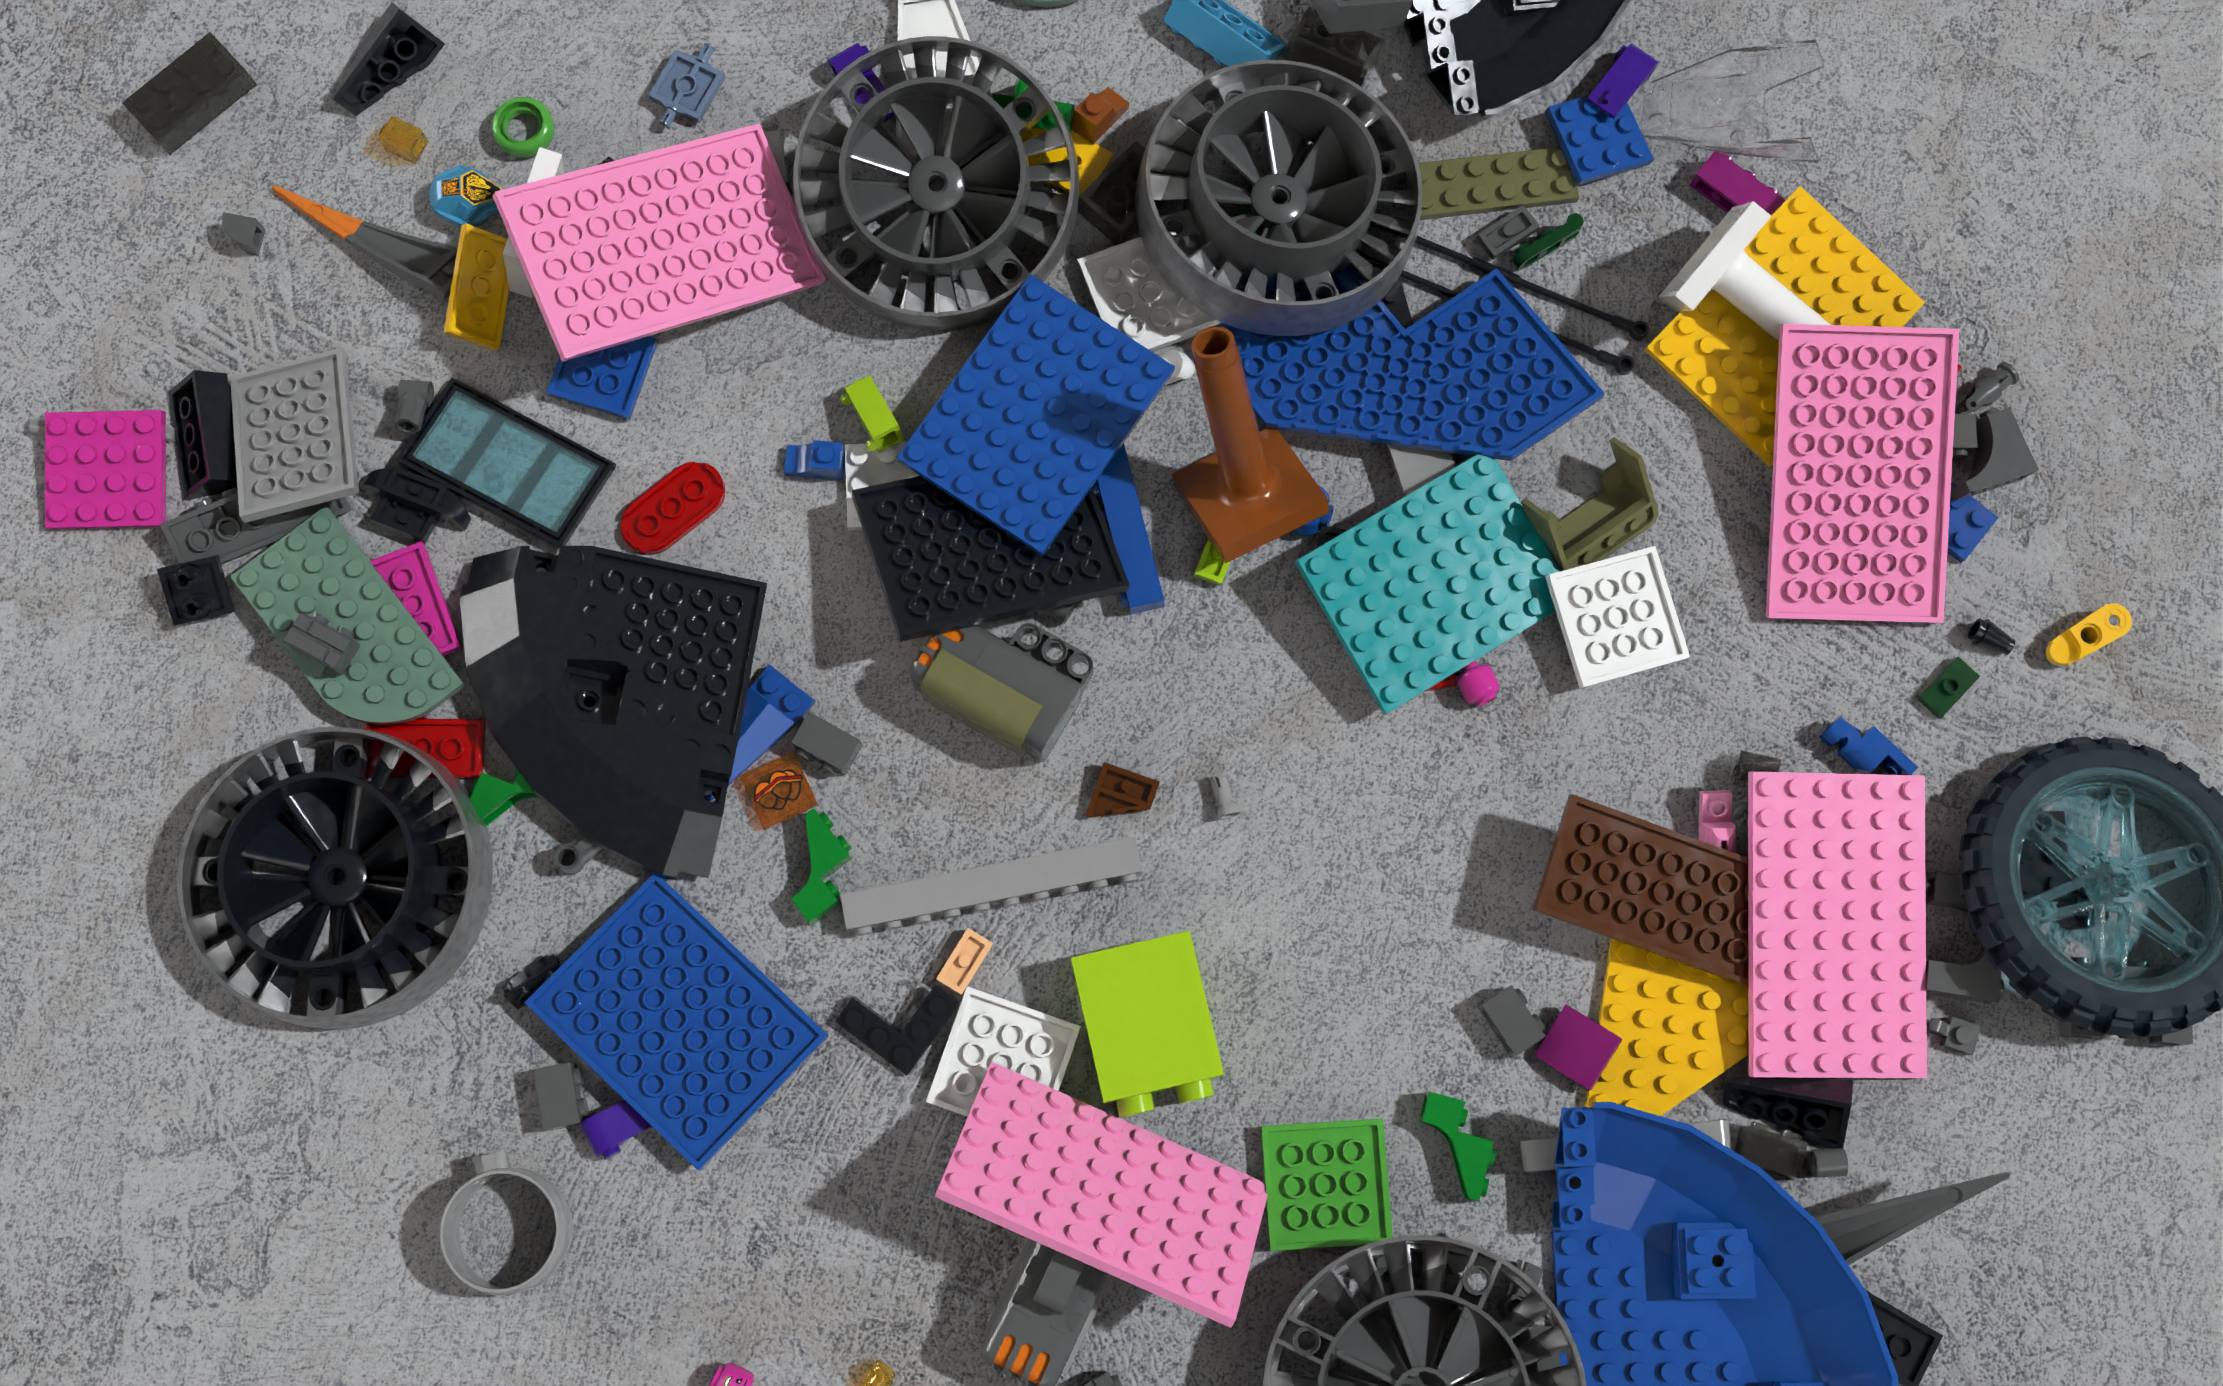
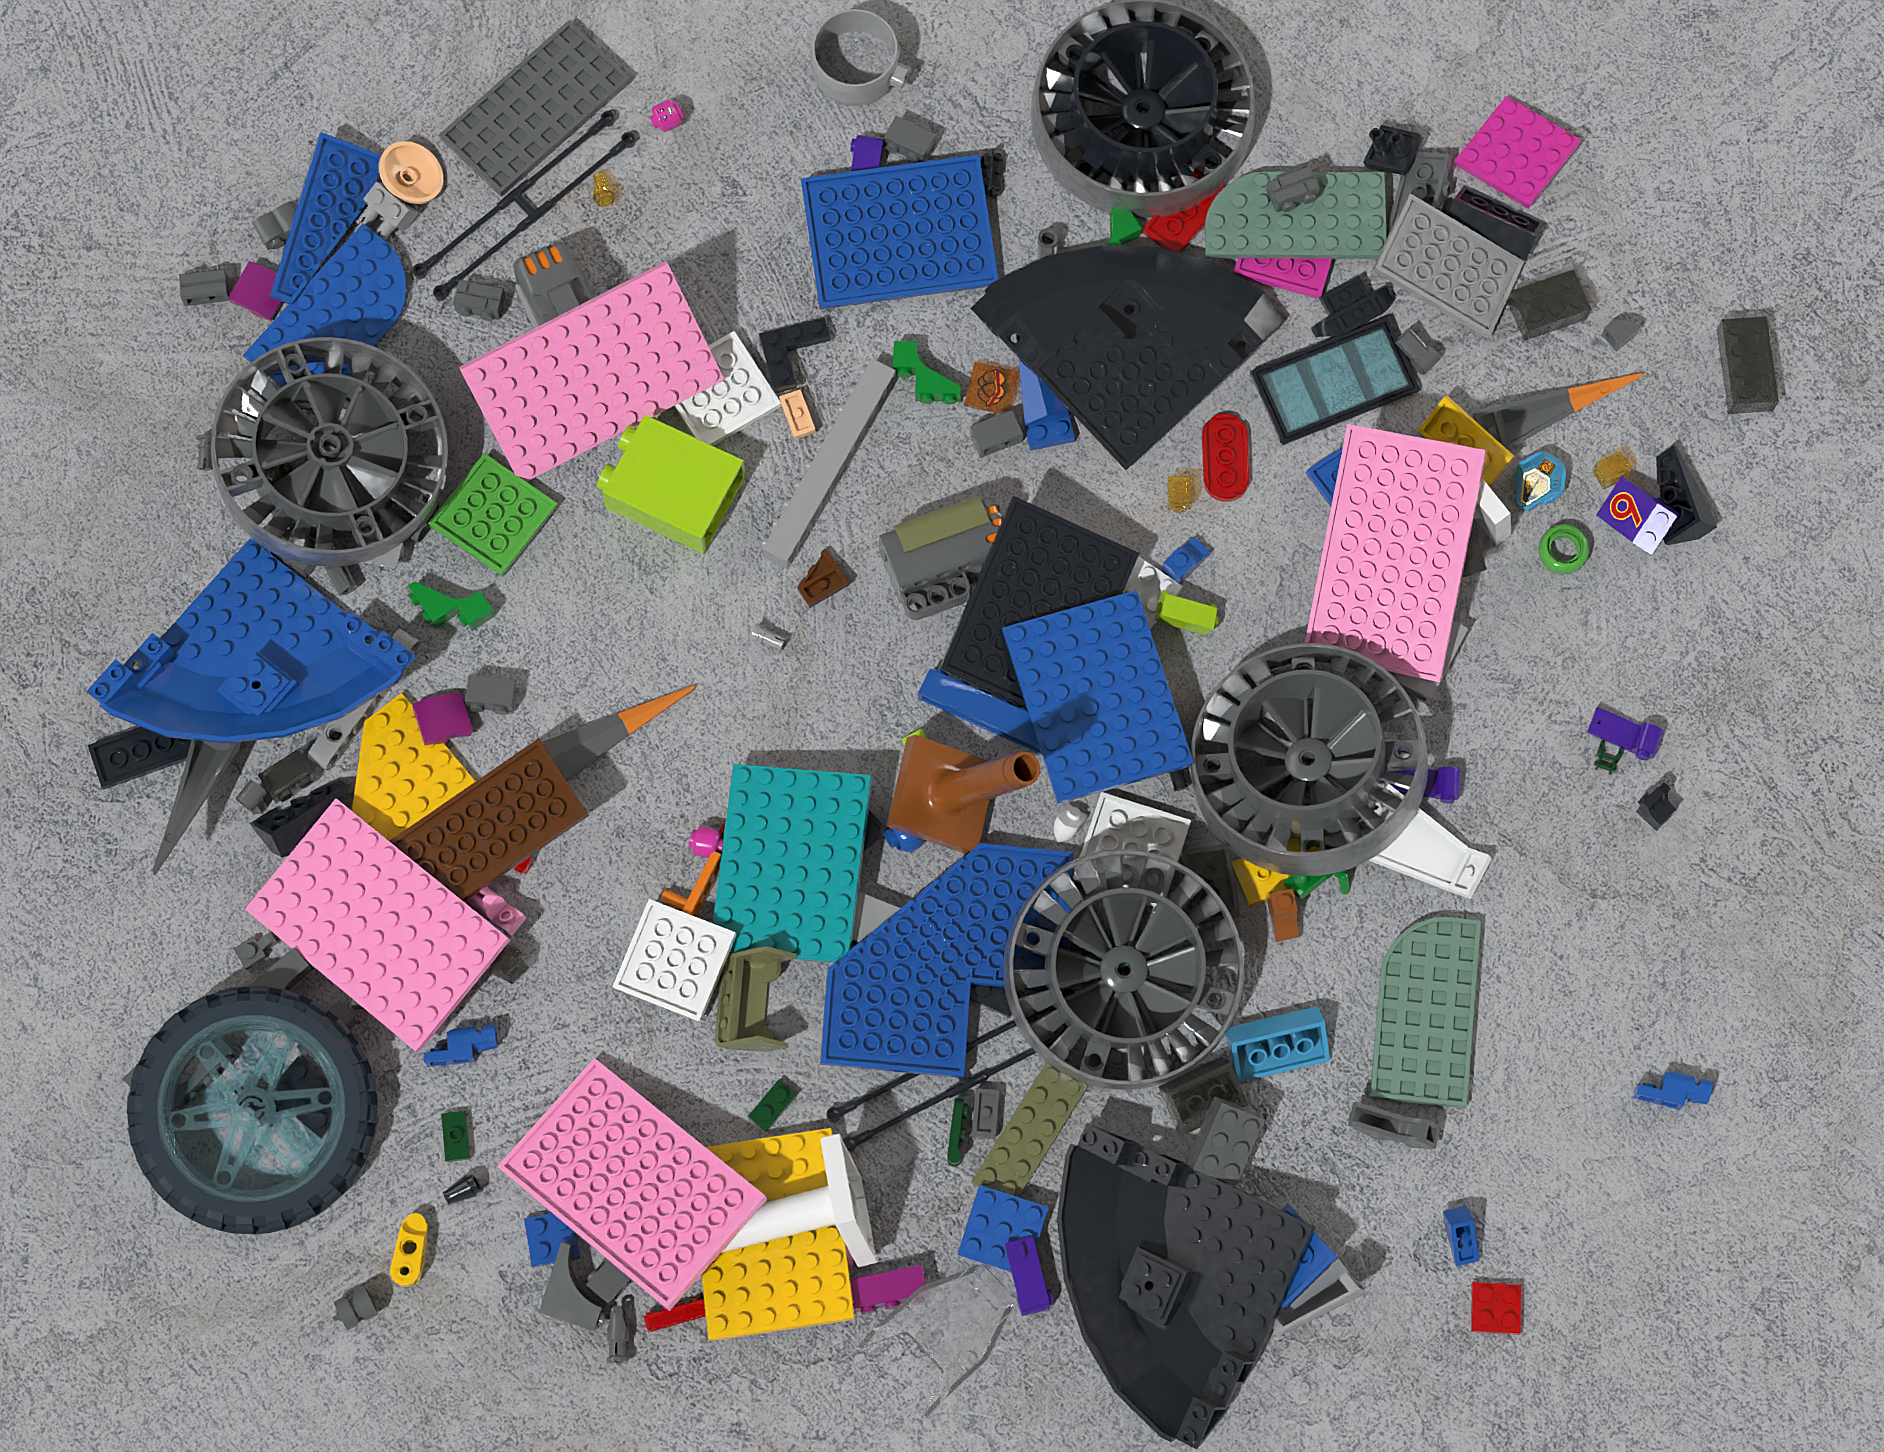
camera: 130 degrees right, 5 degrees down
(263, 317) = (1548, 305): none -> clear smoke brick
(435, 78) = (1637, 515): none -> dark purple slope
(687, 86) = (1513, 670): sand blue plate -> none
(749, 518) = (1179, 493): none -> clear yellow brick
(1490, 887) = (584, 745): none -> dark grey plate
(1552, 653) = (700, 891): none -> orange piece
(1665, 425) = (772, 1106): none -> dark green plate
(2186, 642) = (352, 1309): none -> dark grey wheel

